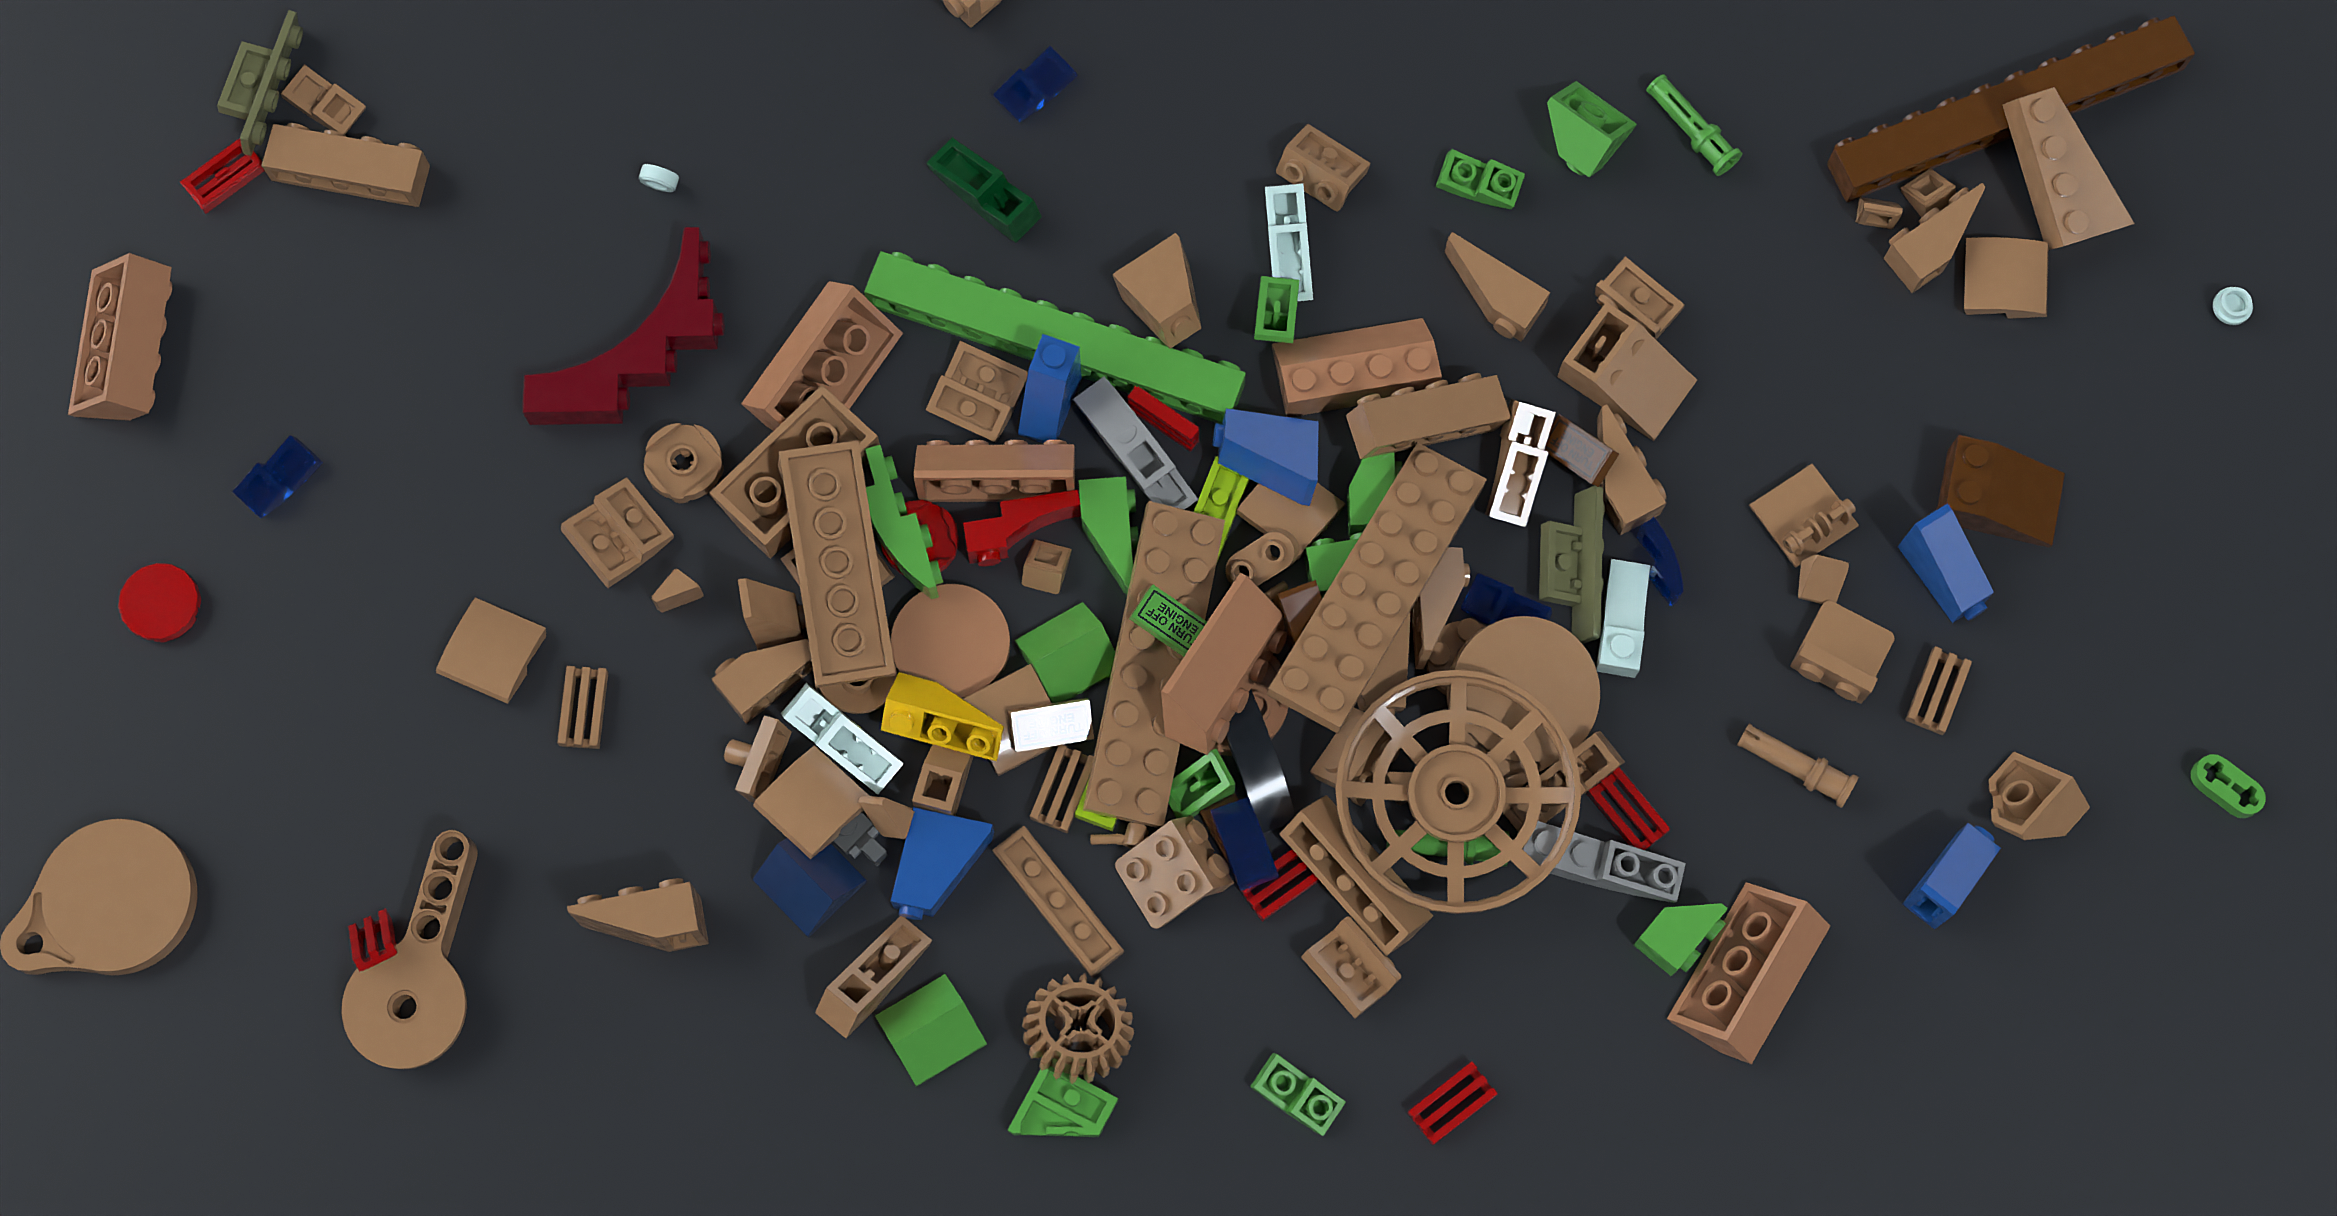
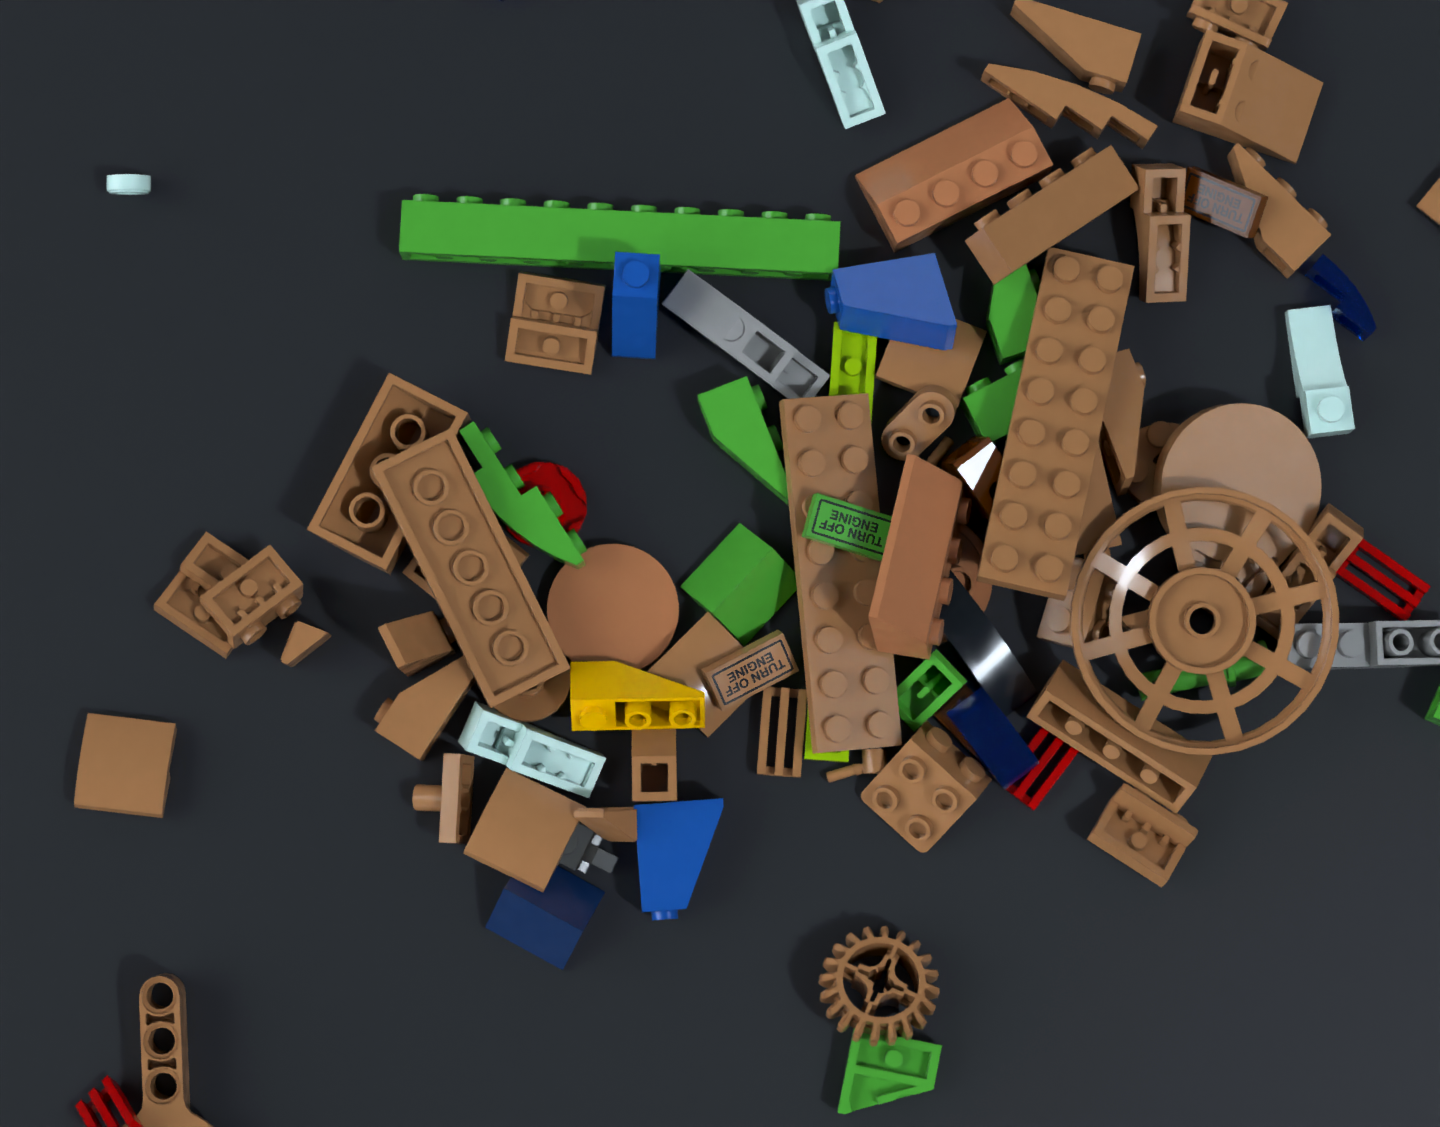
camera: 20 degrees left, 10 degrees up
(586, 675) = (229, 814): medium nougat tile -> none
(646, 358) = (206, 340): dark red arch -> none
(647, 540) = (254, 597): none -> medium nougat bracket
(659, 917) = (403, 1006): medium nougat slope -> none
(685, 440) = (258, 471): medium nougat plate -> none
(832, 346) = (379, 328): nougat slope -> none
(871, 976) = (646, 993): medium nougat slope -> none
(931, 1030) = (722, 1029): bright green slope -> none
(985, 189) = (490, 91): dark green slope -> none
(991, 538) = (622, 484): red slope -> none
(992, 471) = (604, 408): nougat slope -> none
(1046, 566) = (688, 495): medium nougat slope -> none
(1058, 901) = (813, 854): medium nougat tile -> none
(1161, 291) = (722, 155): medium nougat slope -> none
(1163, 418) = (765, 295): red tile -> none
(1276, 309) = (852, 140): bright green slope -> none
(1297, 1094) = (1124, 982): bright green slope -> none
(1461, 327) = (1051, 97): none -> medium nougat slope
(1479, 1082) = (1308, 913): red tile -> none
(1495, 601) = (1183, 395): clear blue slope -> none
(1574, 564) = (1250, 327): olive bracket -> none

